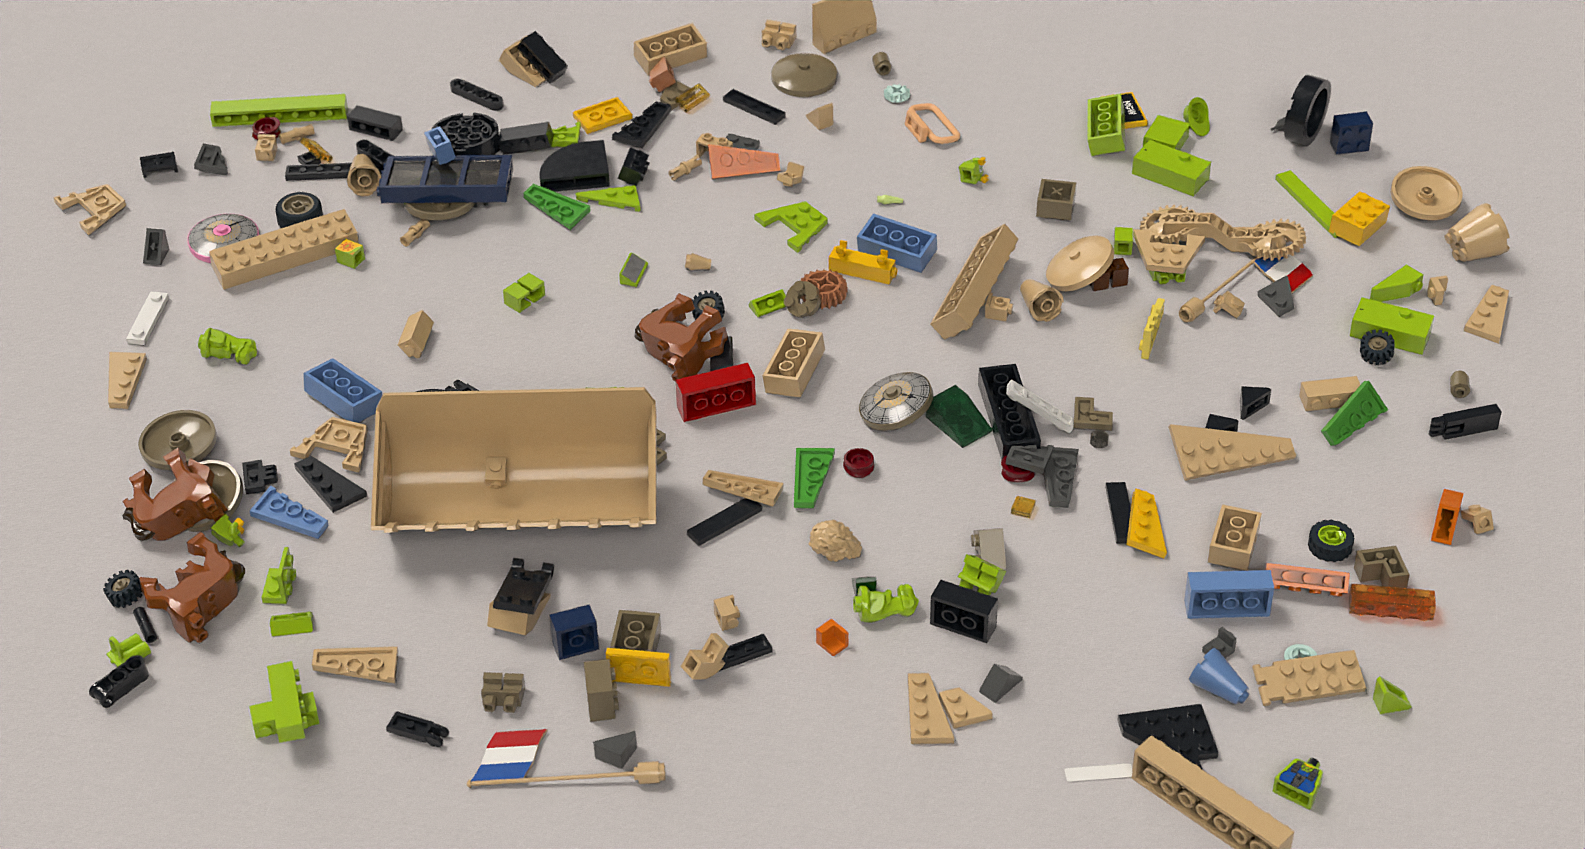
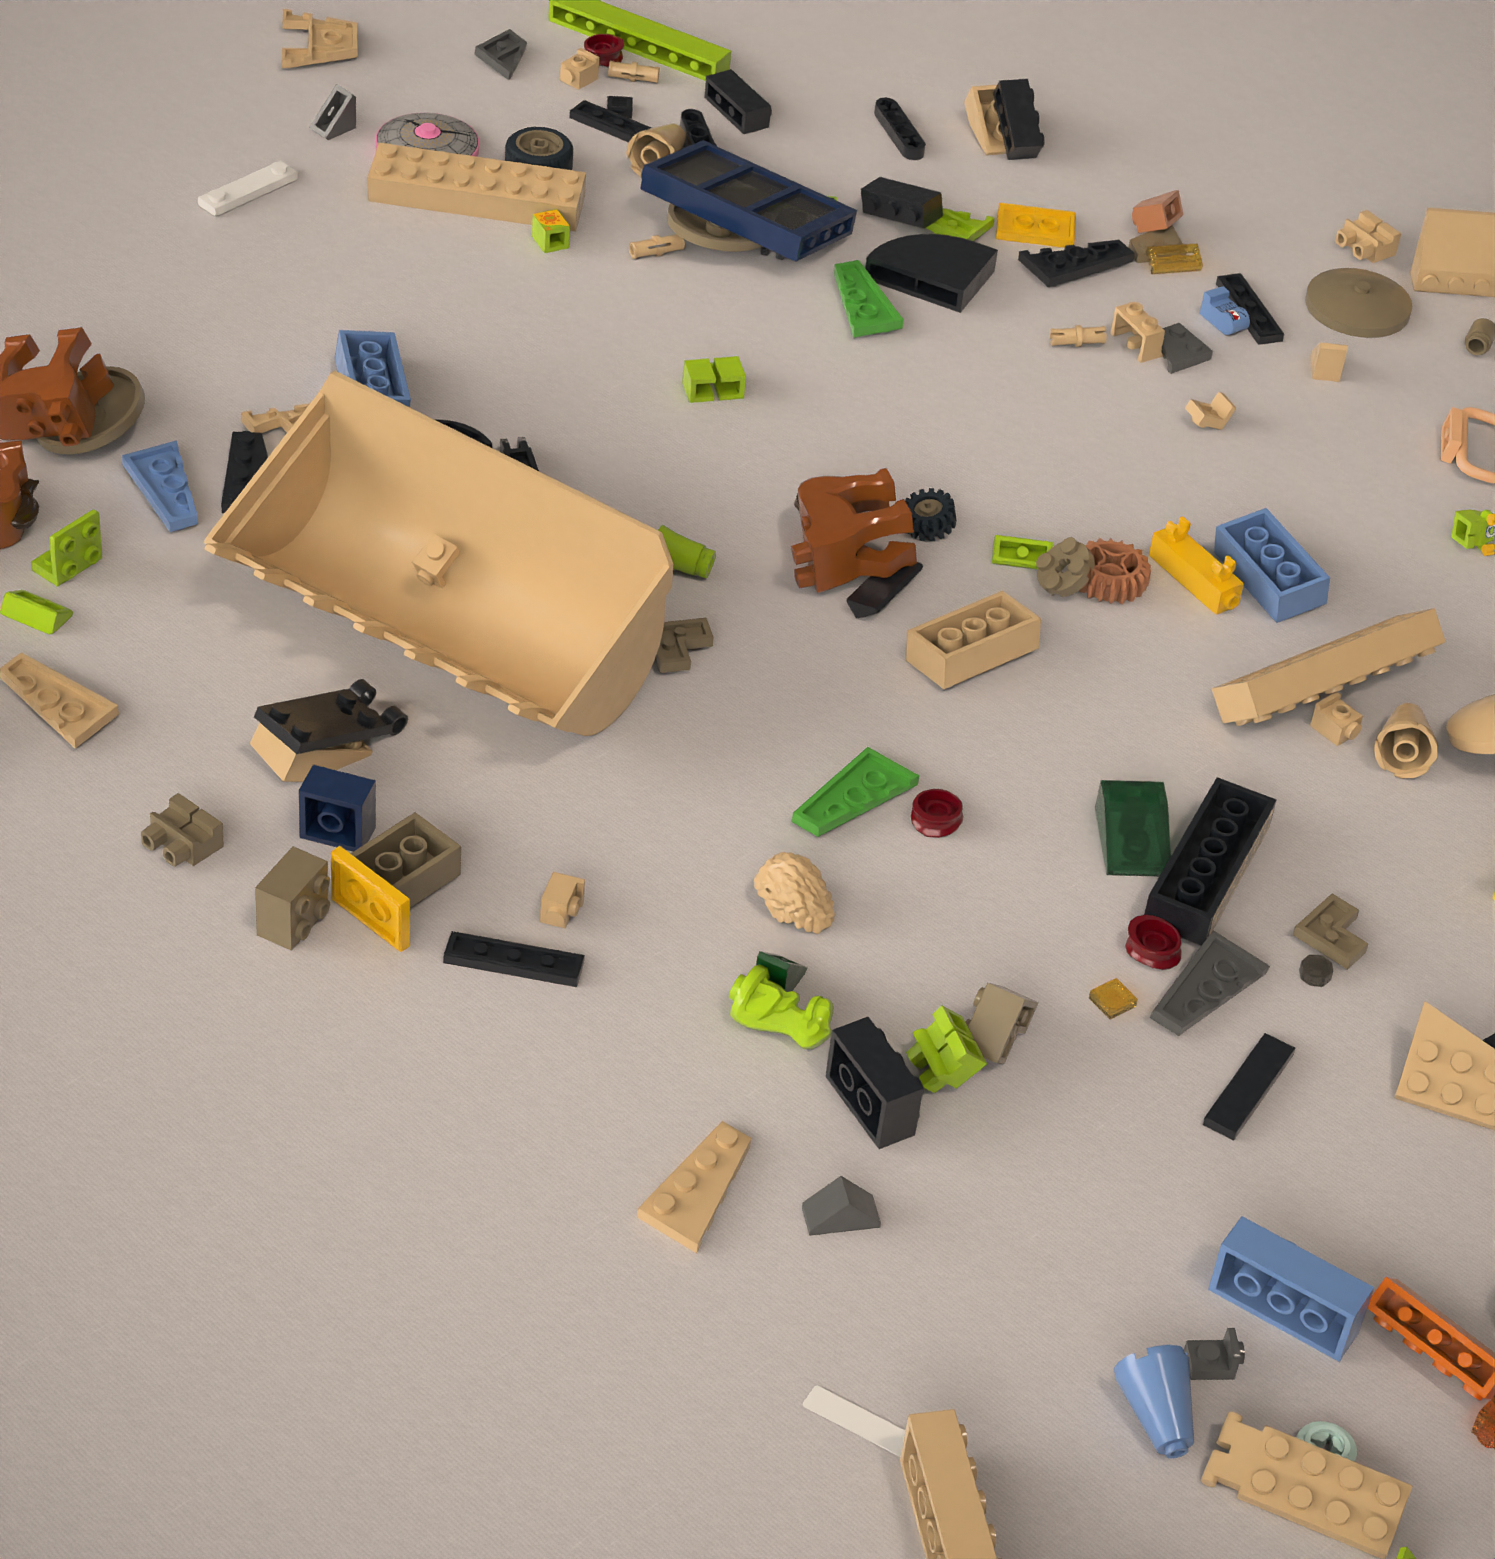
camera: 30 degrees right, 0 degrees up
(124, 375) = (151, 238): tan wing -> none
(158, 162) = (436, 26): black hinge -> none
(181, 429) = (131, 331): dark tan dish -> none
(222, 345) = (295, 259): lime animal -> none
(228, 532) = (70, 462): lime piece -> none
(258, 476) = (176, 421): black hinge -> none
(316, 149) = (636, 100): clear yellow tile -> none
(415, 334) = (528, 359): tan brick -> none
(417, 729) = (38, 816): black hinge -> none
(439, 145) = (767, 153): medium blue brick -> none
(471, 134) = (827, 164): black brick -> none
(513, 753) = (123, 915): flag -> none
(612, 197) = (950, 327): lime wing -> none
(616, 749) = (246, 986): dark grey slope -> none
(632, 270) = (881, 422): slope -> none
(634, 167) = (1006, 300): black brick -> none
(676, 45) = (1204, 185): tan brick -> none
(697, 262) = (974, 454): tan cone -> none
(708, 661) = (462, 943): tan brick -> none
(715, 392) = (826, 619): red brick -> none
(723, 521) = (683, 786): black tile -> none
(737, 161) = (1152, 360): orange wing -> none
(743, 486) = (750, 760): tan wing -> none
(745, 116) = (1223, 312): none -> medium blue leg
(799, 217) = (1171, 473): lime wing -> none
(832, 637) = (667, 1012): orange panel -> none
(886, 199) = (1319, 507): yellowish green piece -> none
(896, 93) = (1460, 384): light aqua gear -> none
(896, 401) = (1062, 760): dish -> none
(963, 708) = (753, 1214): tan wing -> none
(1029, 457) = (1177, 935): dark grey wing -> none
(1040, 406) = (1256, 874): white plate -> none
(1144, 525) = (1265, 1123): yellow wing -> none
(1179, 728) = (1021, 1437): black wing -> none
(1234, 537) = (1382, 1216): tan brick -> none

